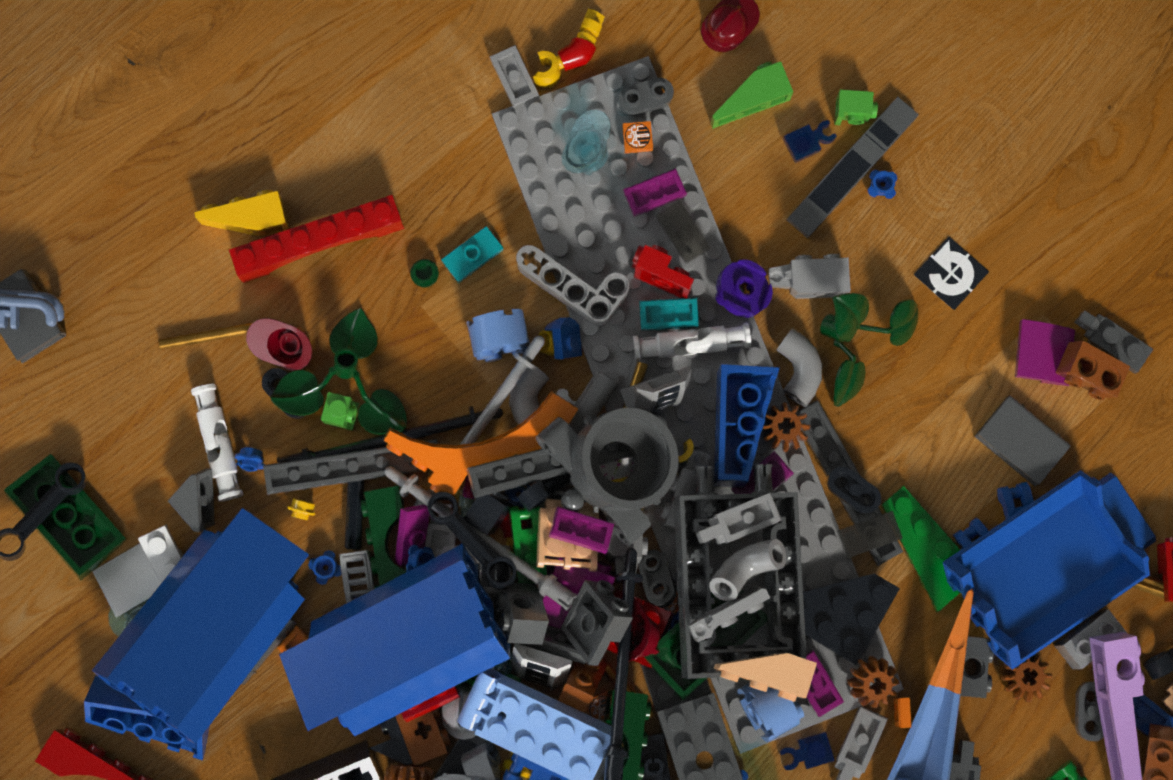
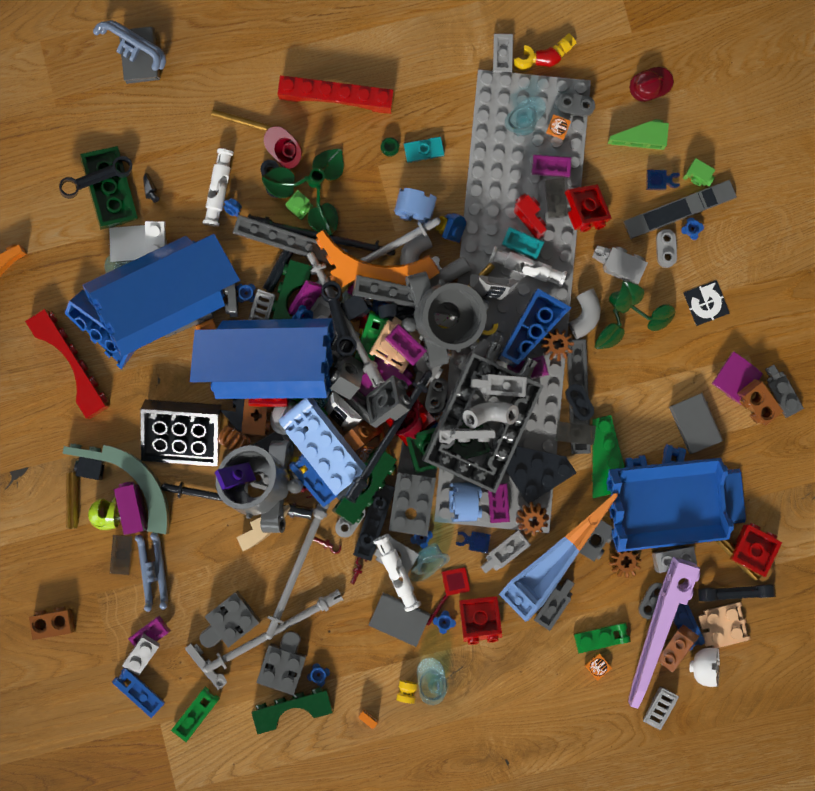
camera: 25 degrees right, 5 degrees up
(123, 490) = (150, 190): none -> black bar
(196, 500) = (189, 216): dark grey slope -> none
(254, 216) = (306, 62): yellow slope -> none
(301, 509) = (248, 251): yellow plate -> none
(315, 595) = (232, 305): none -> dark grey plate
(569, 281) = (472, 194): light grey beam -> none
(731, 225) = (587, 208): none -> red plate
(731, 296) = (565, 250): dark purple plate -> none
(779, 671) = (479, 484): light nougat slope -> none
(859, 227) = (664, 248): none -> light grey plate
(902, 712) = (541, 545): orange tile -> none

